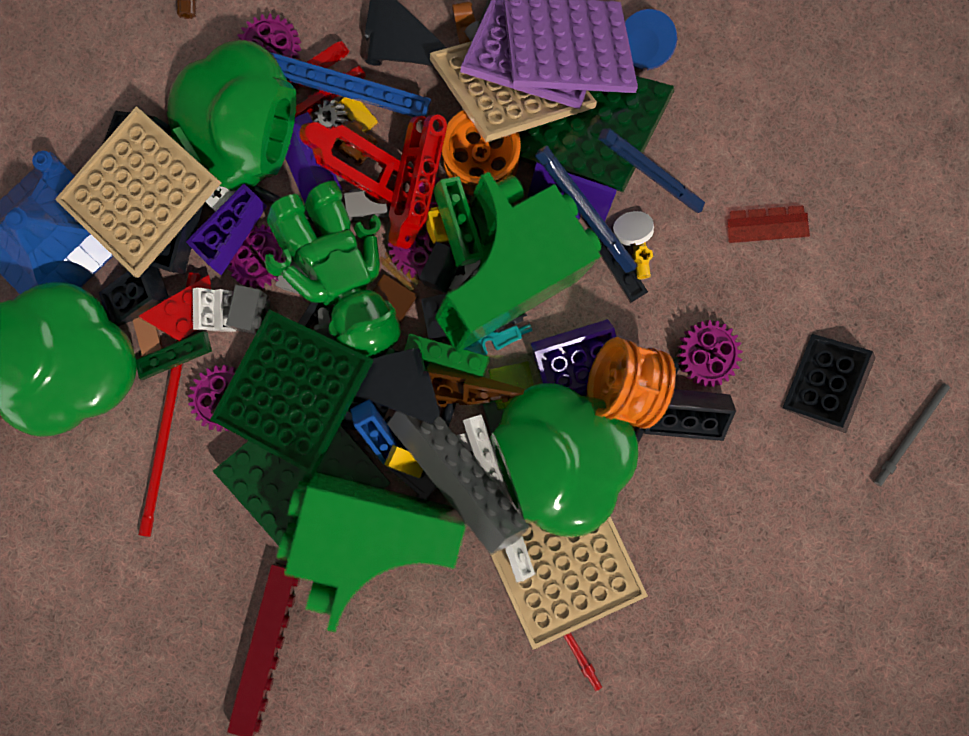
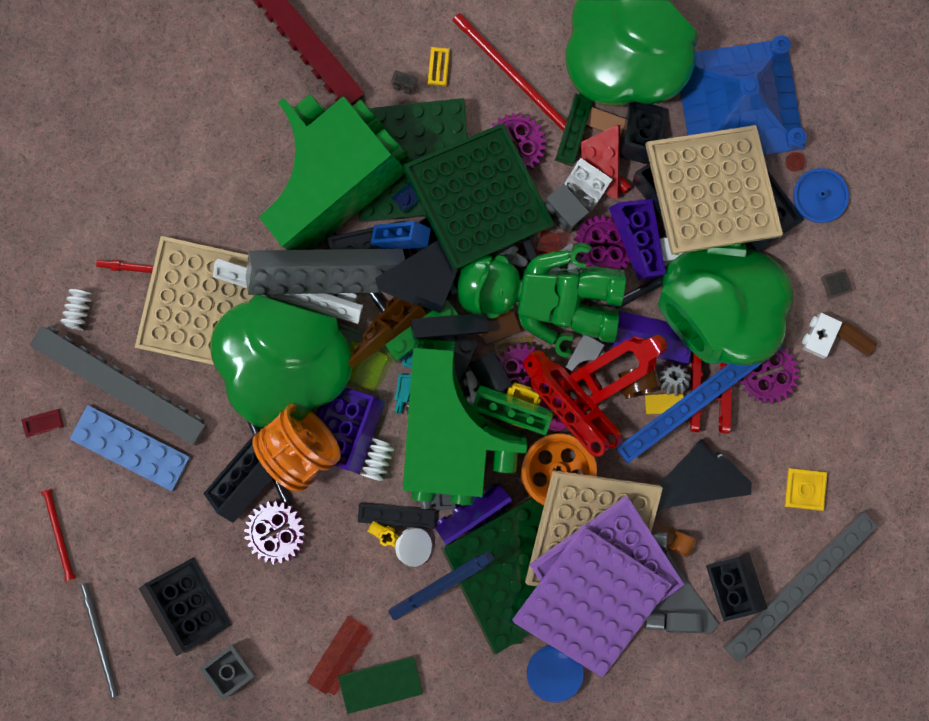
camera: 125 degrees right, 0 degrees up
(69, 152) = (794, 162): none -> clear red tile
(83, 110) = (820, 195): none -> blue piece
(151, 44) = (836, 284): none -> clear smoke piece
(204, 25) = (829, 328): none -> white brick
(217, 508) = (440, 50): none -> yellow tile
(236, 536) = (404, 82): none -> clear smoke piece
(290, 305) = (547, 242): none -> clear red panel
(338, 455) = (405, 198): none -> clear blue plate
(403, 461) = (365, 239): yellow tile -> none
(425, 332) = (449, 326): none -> black tile
(584, 311) = (378, 460): none -> white piece
(585, 208) = (448, 513): dark blue piece -> none
(654, 674) = (76, 309): none -> white piece
(690, 587) = (119, 386): none -> dark grey brick
(734, 534) = (129, 448): none -> medium blue plate
(765, 173) = (380, 684): none -> dark green tile
(771, 627) = (42, 423): none -> dark red tile
(841, 556) = (58, 535): none -> red bar
(855, 304) = (228, 671): none -> dark grey brick

